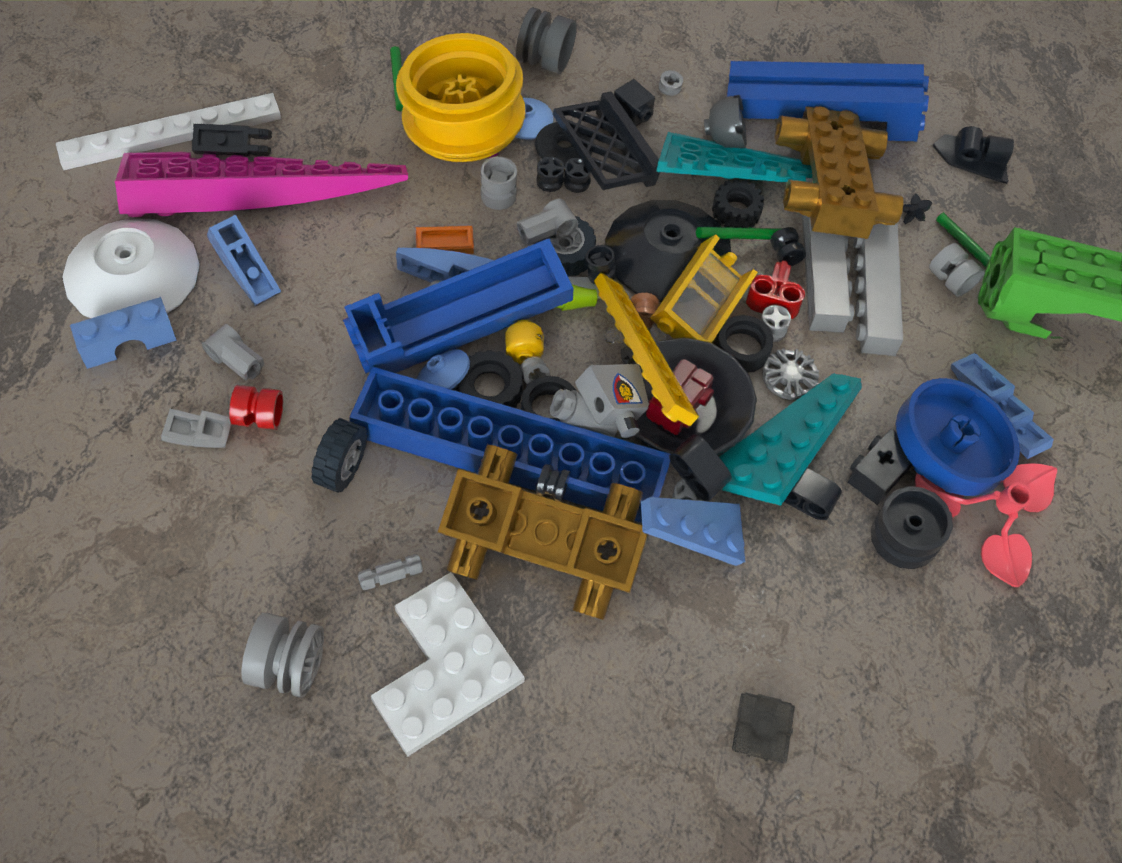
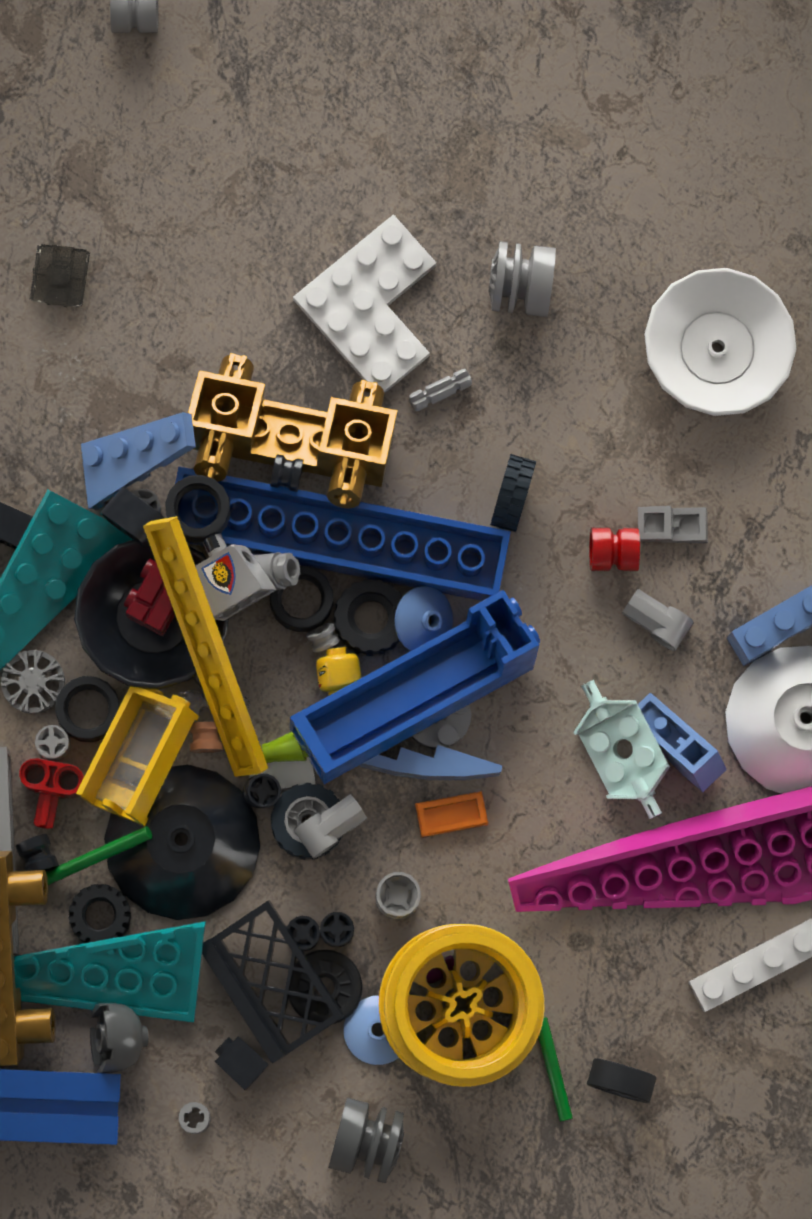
camera: 170 degrees right, 20 degrees up
(79, 546) = (724, 310): none -> white dish
(229, 140) = (737, 921): black hinge -> none
(290, 242) = (600, 732): none -> light aqua plate
(353, 41) = (621, 1080): none -> black tyre
(641, 438) = (196, 483): none -> black tyre

